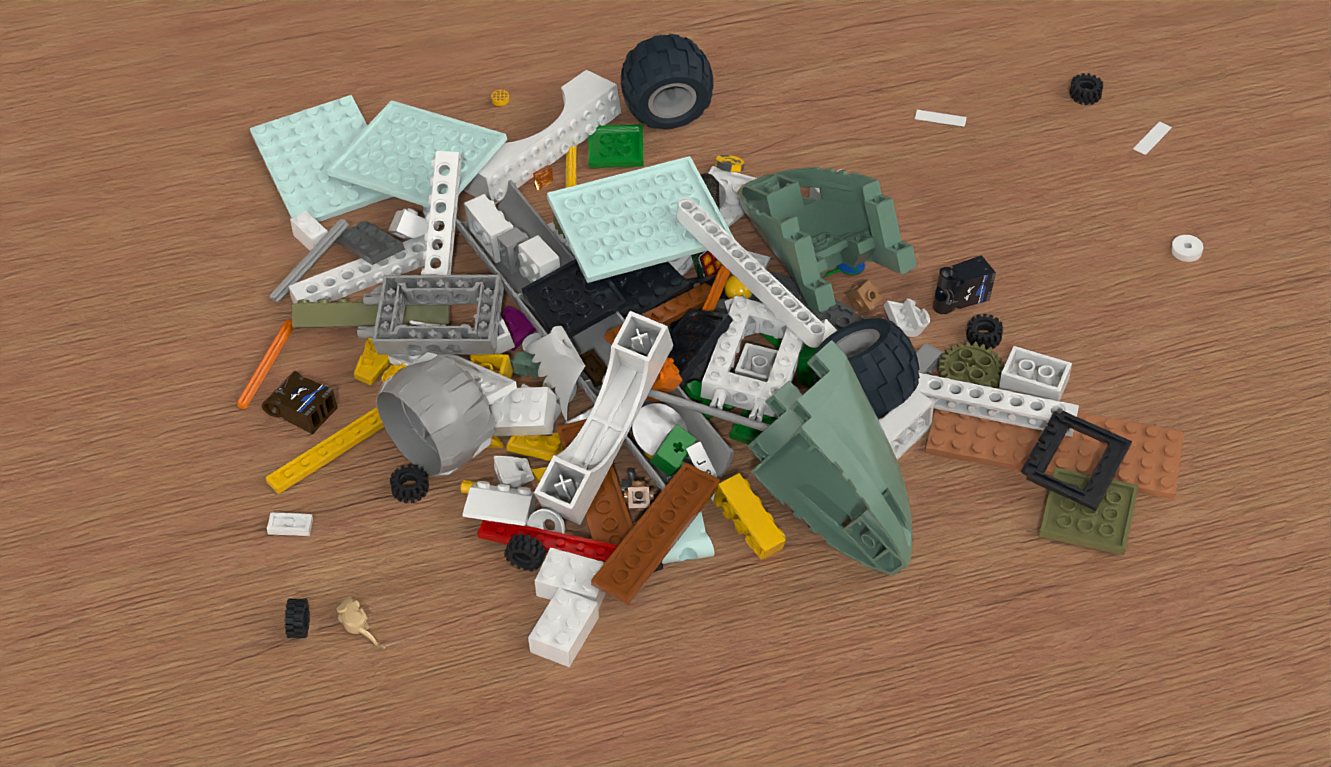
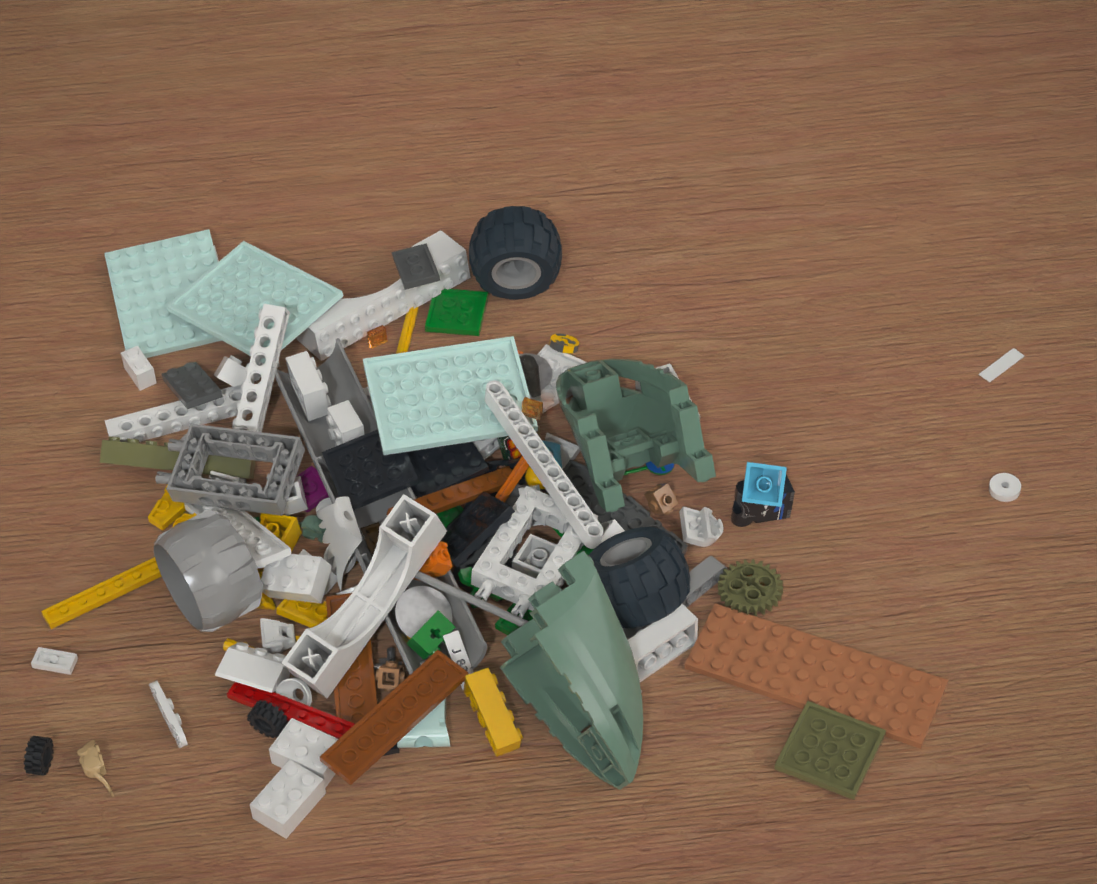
camera: 10 degrees right, 0 degrees up
(265, 364) = (66, 498): orange axle -> none
(301, 402) = (91, 540): dark brown piece -> none
(310, 259) = (131, 396): light grey axle -> none
(409, 474) = (179, 643): black tyre -> none
(417, 556) = (166, 708): none -> white plate
(500, 97) = (355, 247): yellow tile -> none
(509, 248) = (319, 404): light grey brick -> none
(571, 104) = (415, 266): none -> dark grey tile
(727, 220) = (532, 408): none -> clear orange tile
(940, 118) = (789, 318): white sticker -> none
(969, 267) = (764, 484): none -> medium azure slope
(984, 323) = (778, 542): black tyre -> none
(992, 402) = (764, 629): white brick -> none
(1035, 374) = (811, 604): white brick -> none
(1088, 82) = (945, 312): black tyre -> none
(1103, 473) = (851, 713): black hinge -> none

